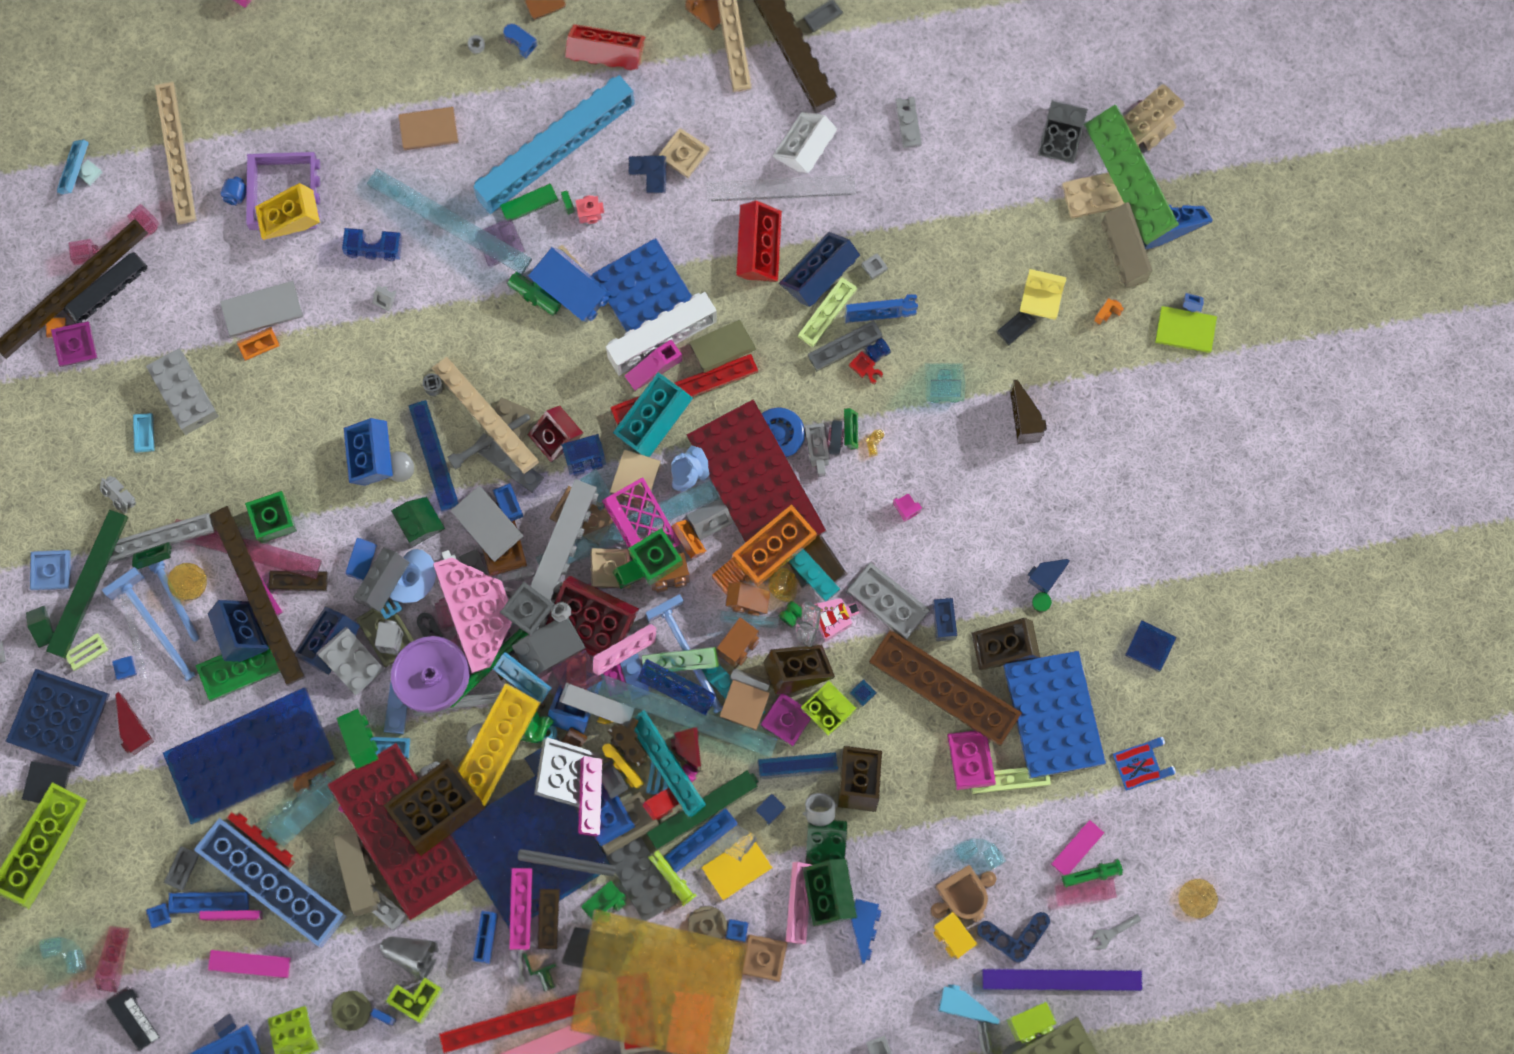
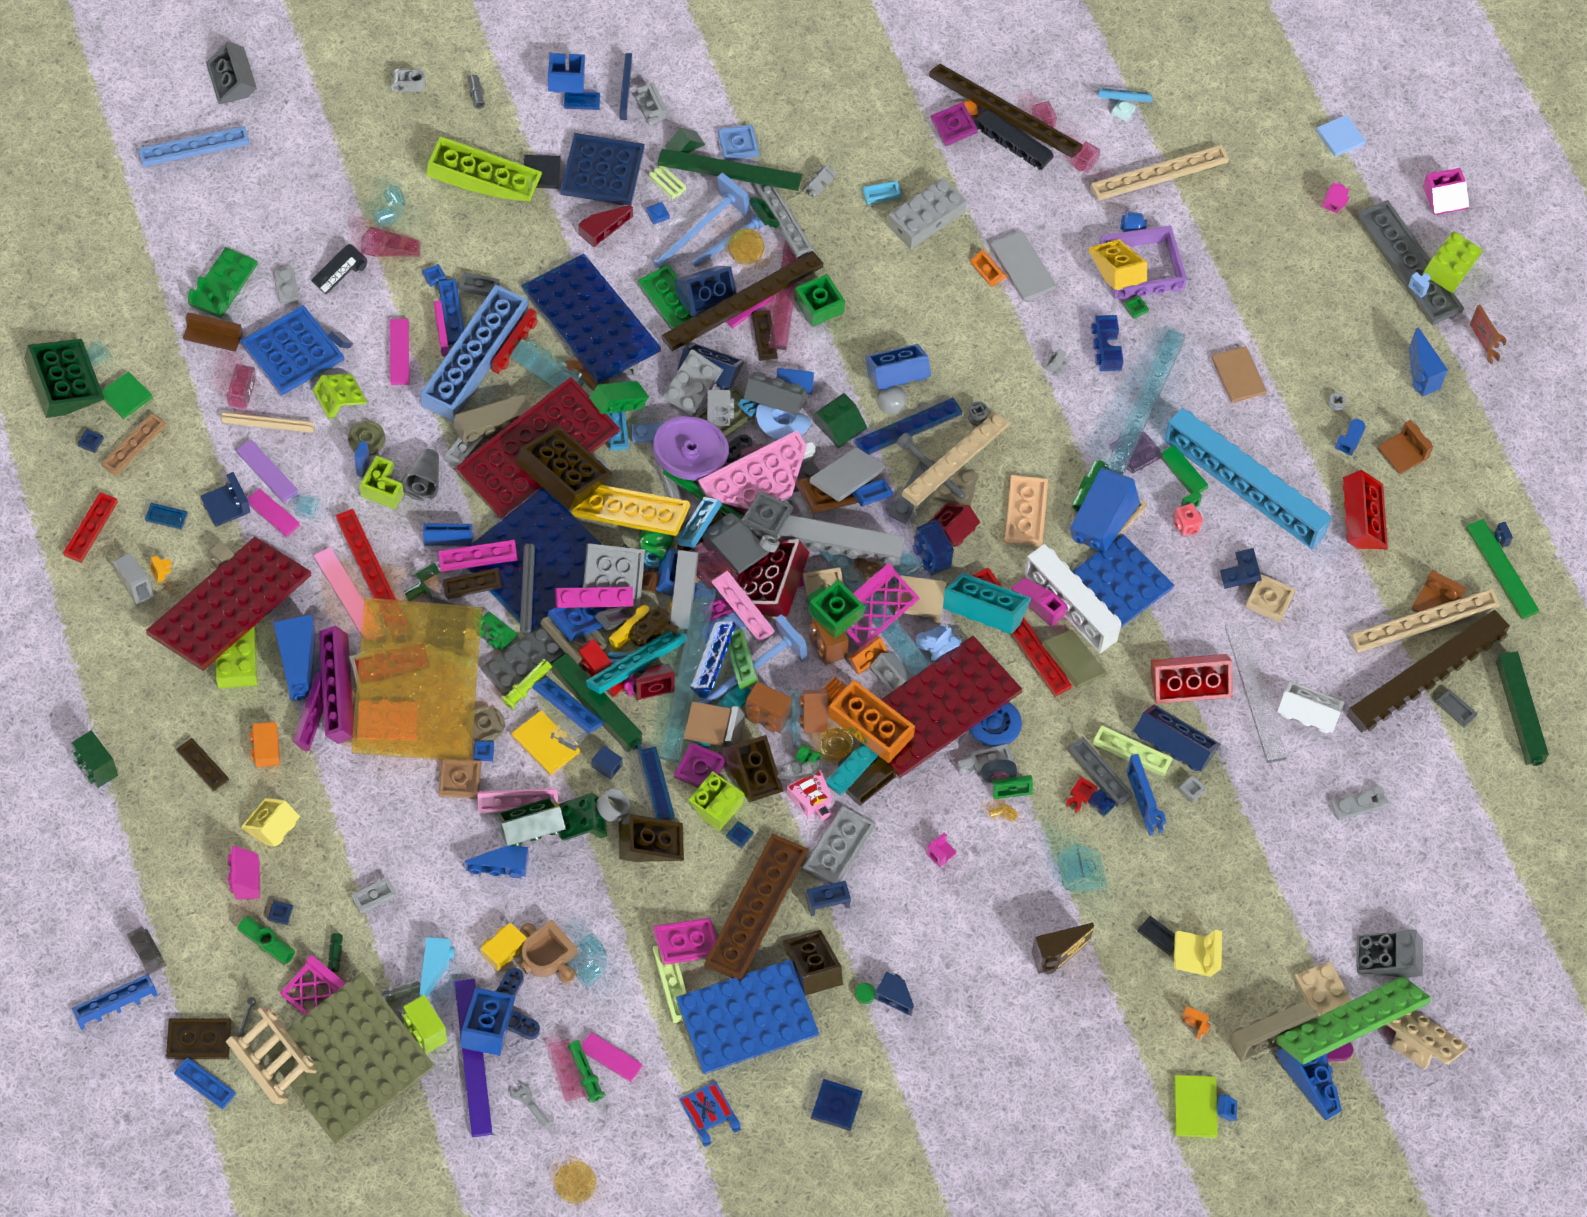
camera: 80 degrees right, 15 degrees down
(332, 208) = (1136, 307): none -> green tile
(548, 359) = (1026, 510): none -> light nougat tile
(1034, 960) = (487, 1021): none -> blue slope

